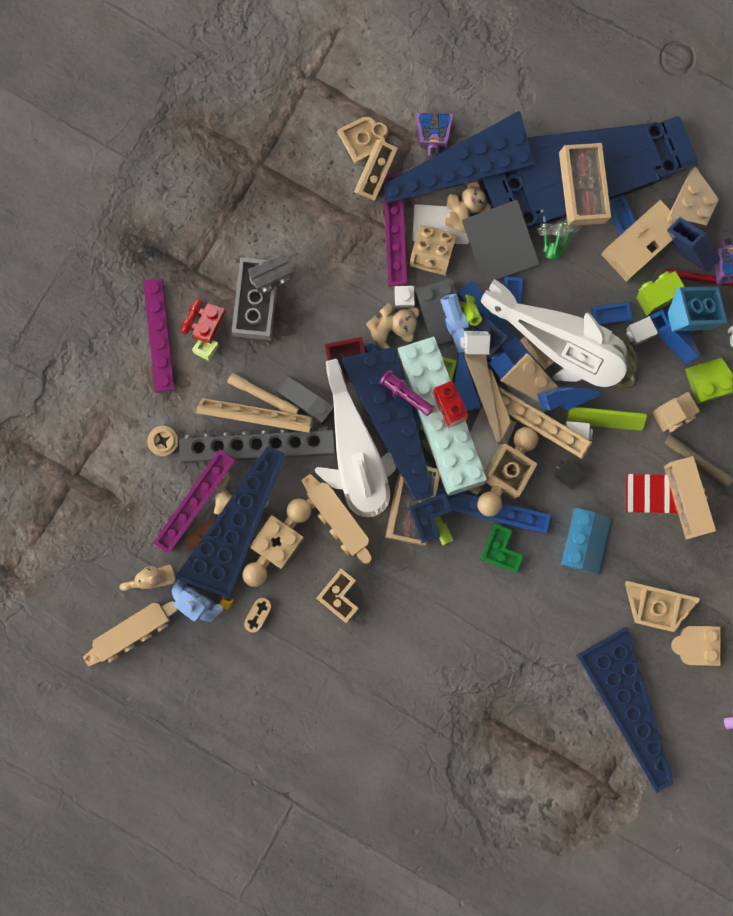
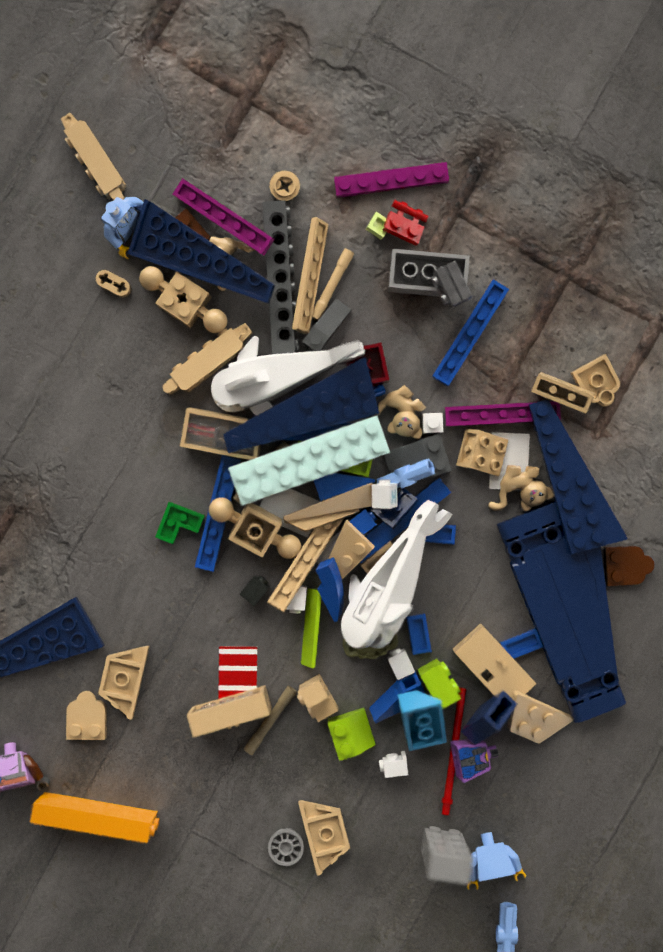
camera: 85 degrees right, 5 degrees up
(151, 578) = (144, 174): tan animal -> none
(314, 259) = (470, 333): none -> blue plate
(333, 596) = (128, 357): tan brick -> none
(399, 388) = (333, 417): magenta pin -> none
(424, 514) = (210, 444): dark blue plate -> none
(433, 131) = (605, 452): torso -> none
(444, 531) = (198, 463): lime bar -> none
(450, 404) = (316, 467): red brick -> none
(471, 311) = (418, 490): lime bar -> none
(500, 241) = (491, 520): dark grey piece -> none
(544, 113) = (626, 565): none -> reddish brown plate
(560, 230) = (501, 581): plant -> none
(584, 184) = (550, 606): brick -> none
(586, 541) = (187, 606): dark azure slope -> none

